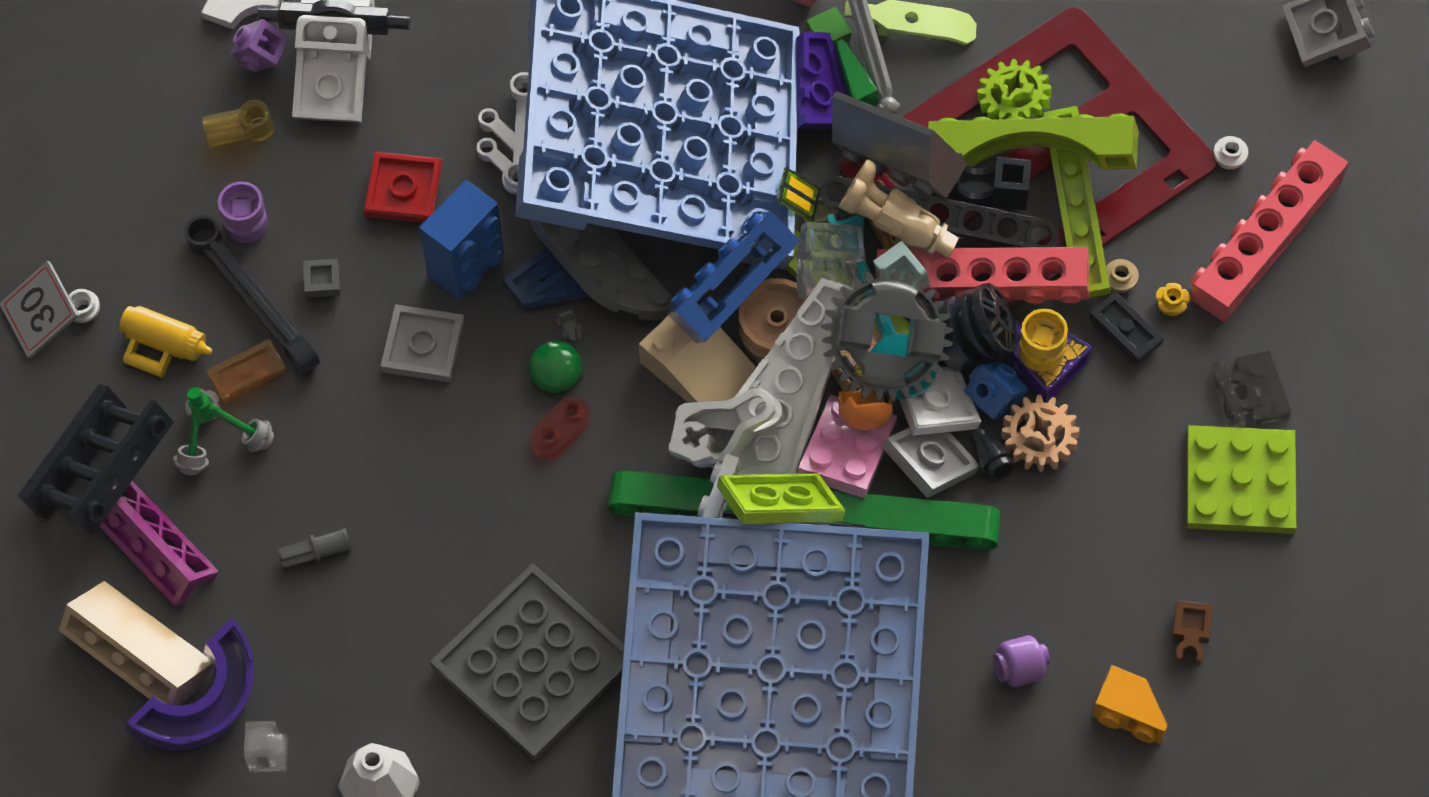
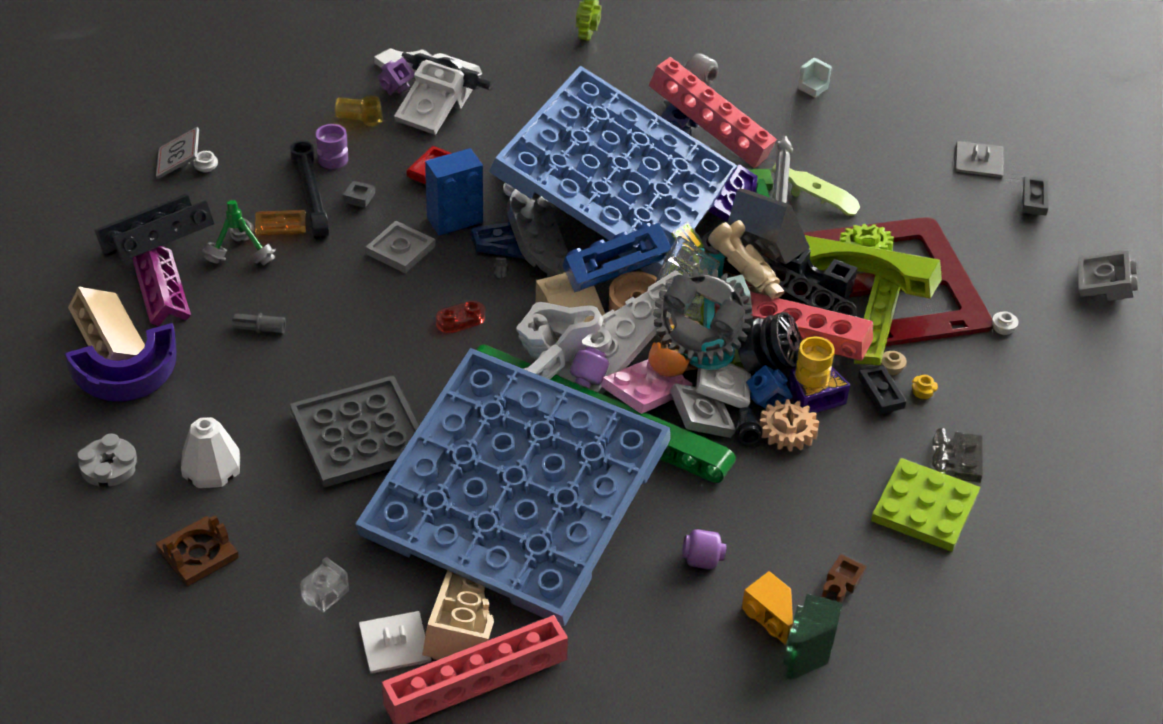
camera: 20 degrees right, 20 degrees down
(162, 334) = (241, 187): yellow piece -> none
(264, 746) = (149, 411): clear brick -> none
(555, 366) = (477, 283): green hair -> none
(773, 454) = (589, 367): none -> medium lavender head
(780, 498) = (576, 378): lime tile -> none
(1196, 730) = (813, 636): none -> clear green slope
(1223, 296) = (1012, 369): coral brick -> none

